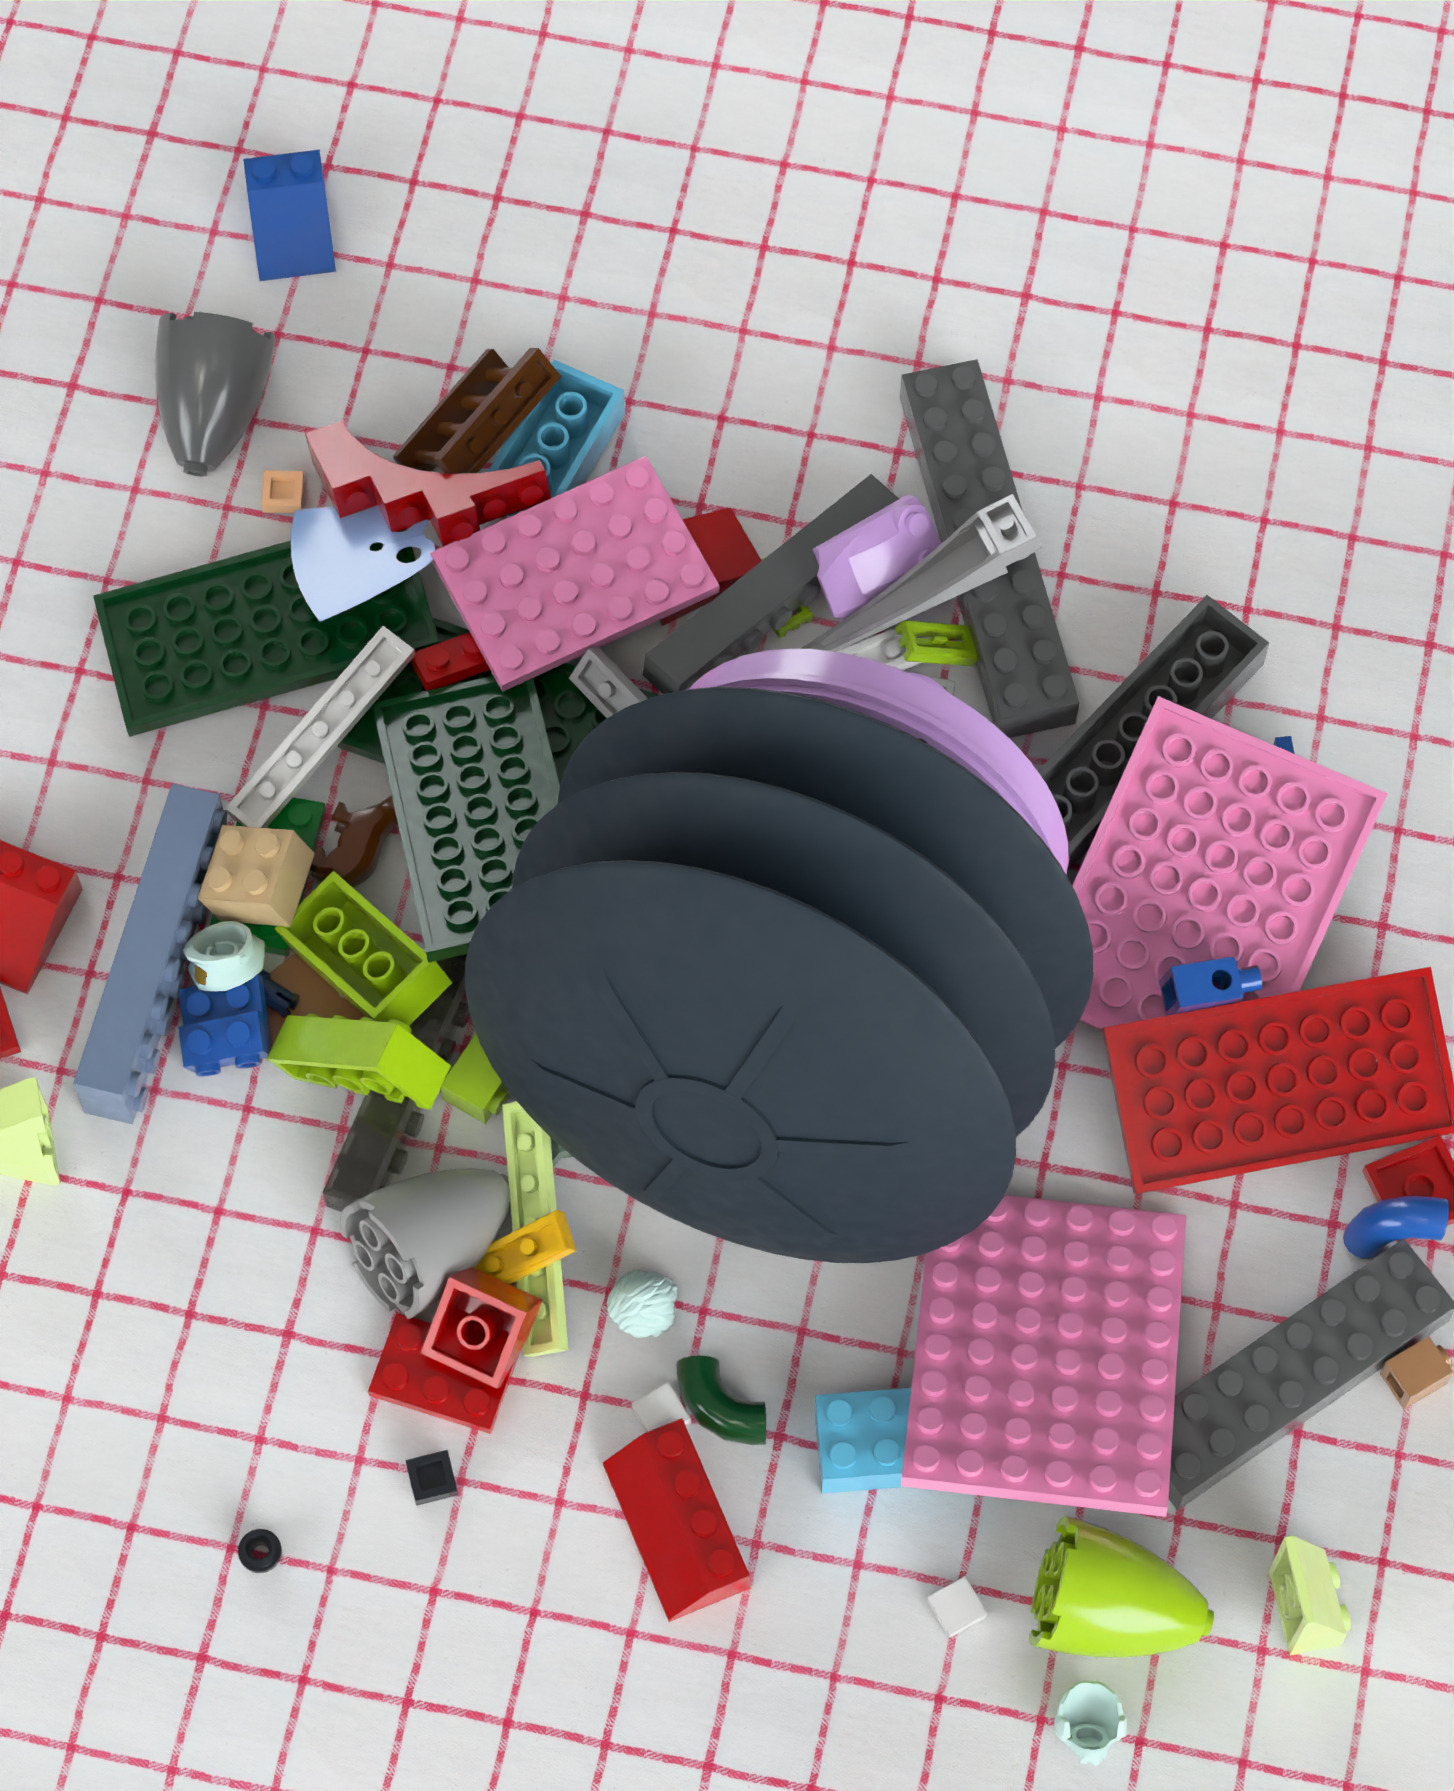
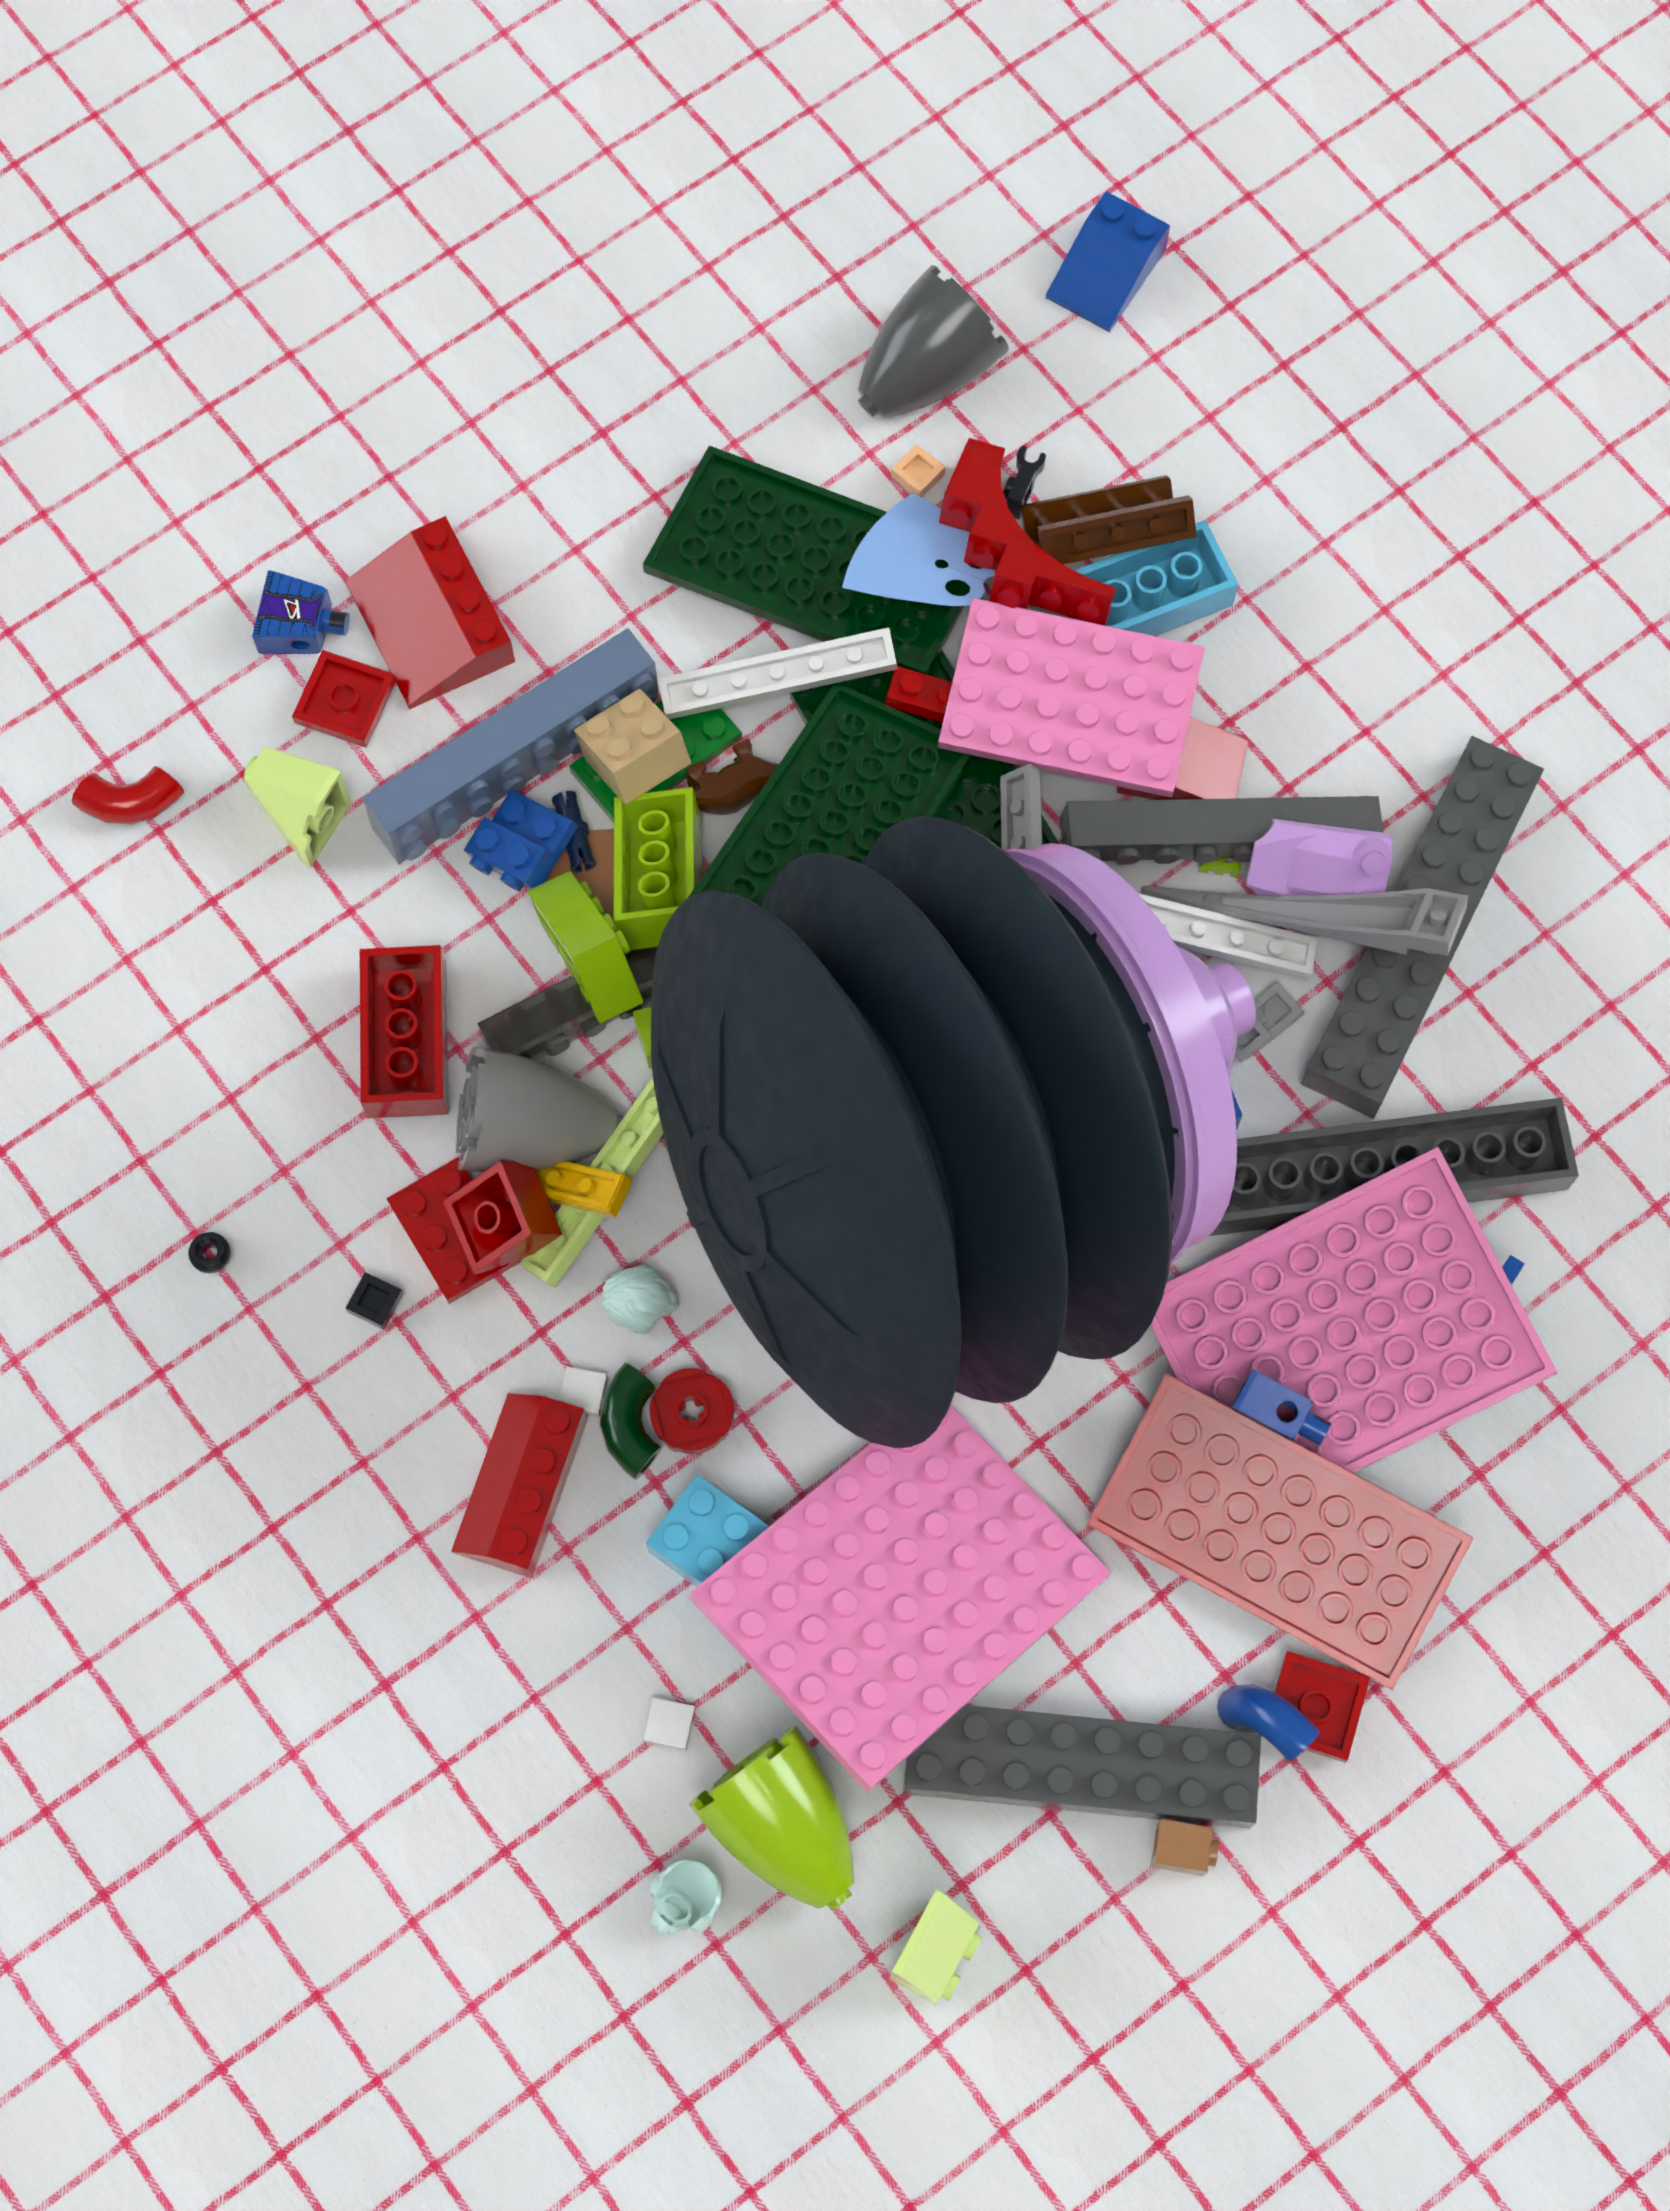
camera: 40 degrees right, 5 degrees up
(224, 956) = (561, 789): light aqua hat -> none
(266, 1247) = (403, 1032): none -> red brick
(374, 428) = (1018, 489): none -> black plate
(755, 1333) = (704, 1391): none -> red plate
(939, 649) = (1310, 975): lime tile -> none

